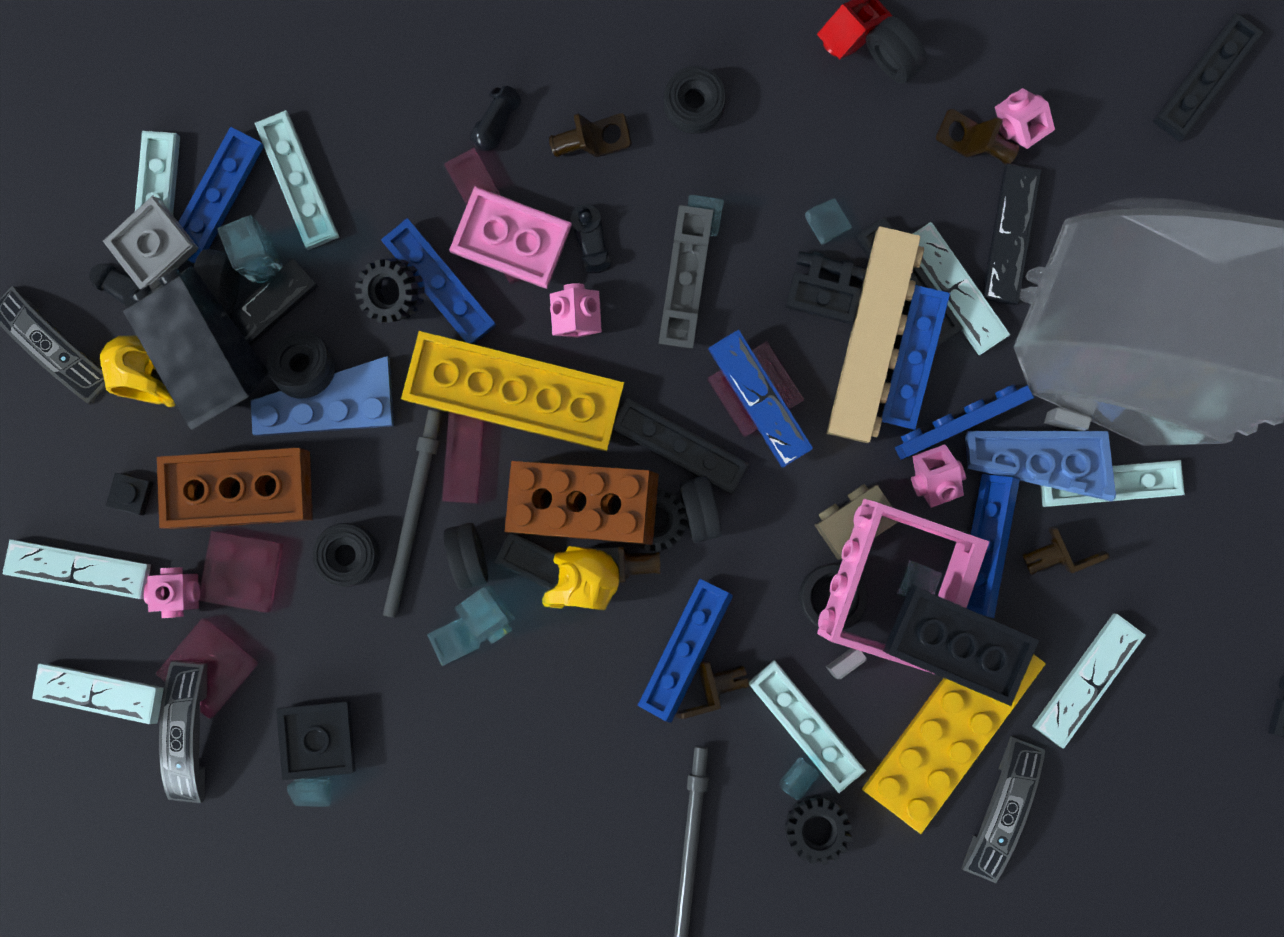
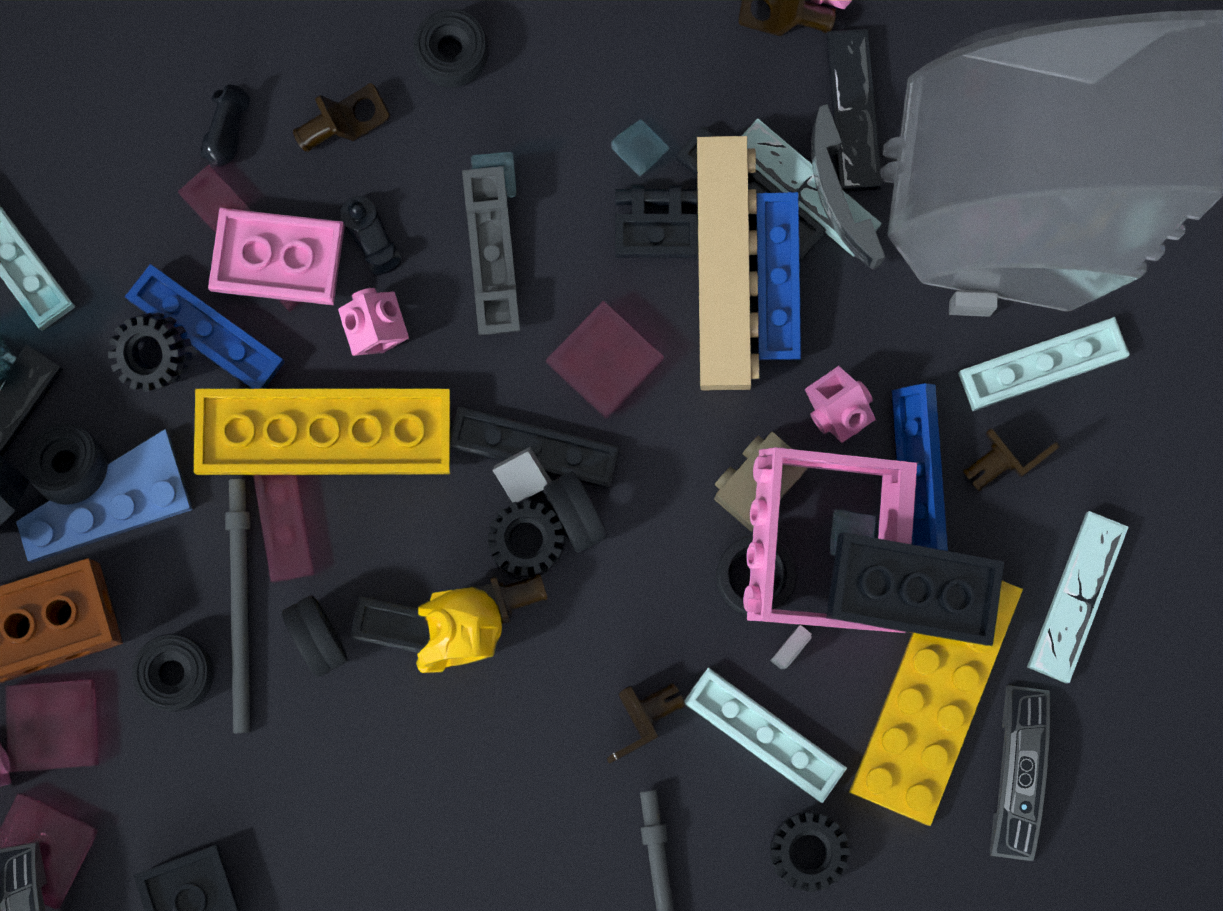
camera: 15 degrees left, 5 degrees down
(453, 641) = (324, 742): clear light blue slope -> none
(486, 615) = (355, 698): clear light blue brick -> none
(567, 483) = (413, 520): dark orange brick -> none
(667, 464) = (521, 475): none -> light grey tile
(685, 650) = (600, 682): blue plate -> none
(760, 398) = (612, 367): blue tile -> none
(798, 779) = (772, 798): clear light blue slope -> none
(975, 414) = (866, 323): blue plate -> none
(989, 343) = (858, 237): none -> dark grey slope
(1054, 459) = (965, 352): medium blue wing -> none

